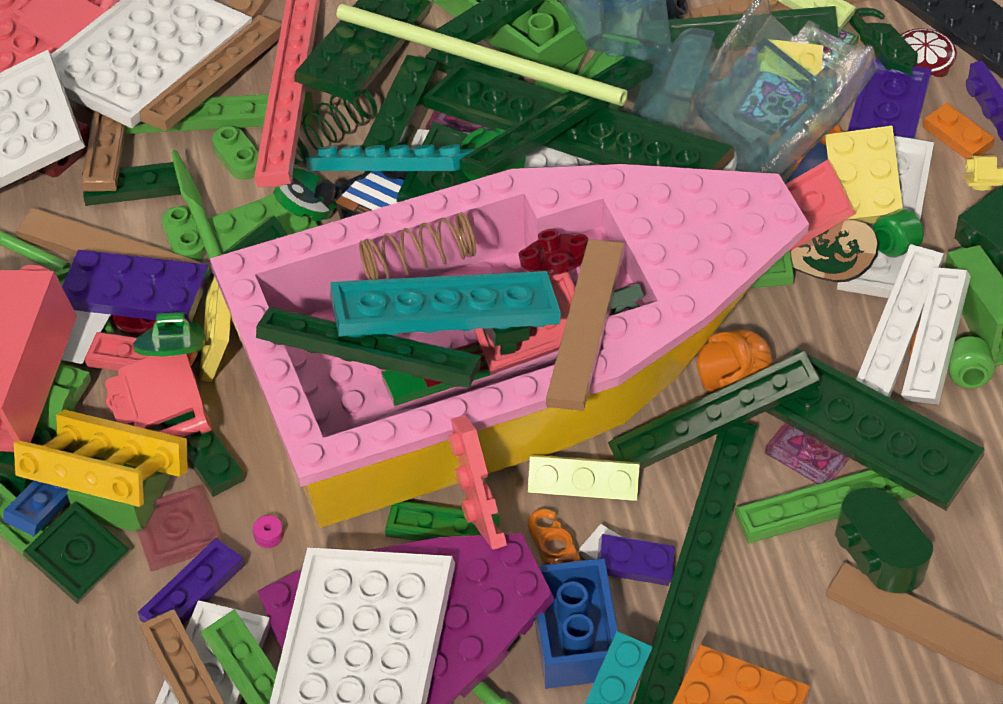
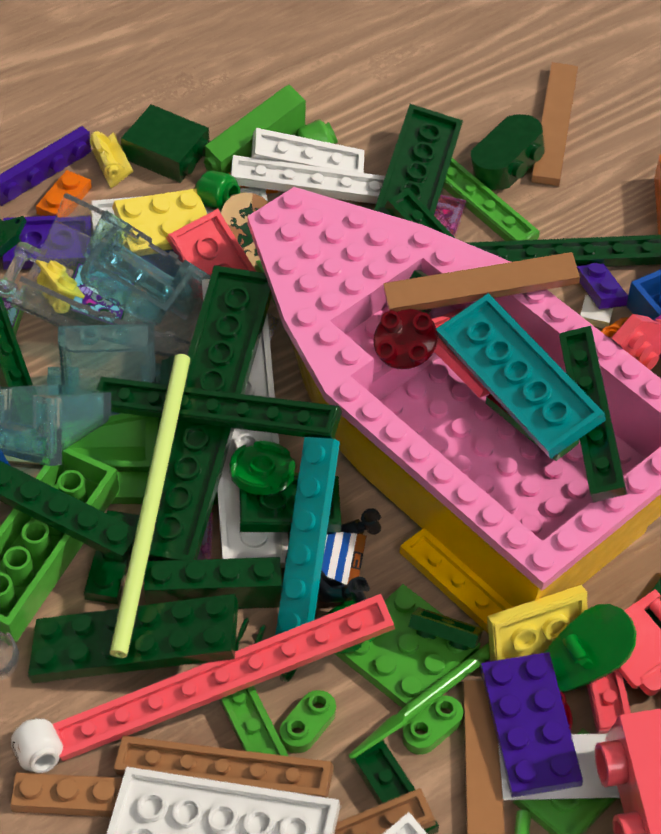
camera: 115 degrees left, 0 degrees up
(369, 260) = (499, 429): medium nougat piece -> none

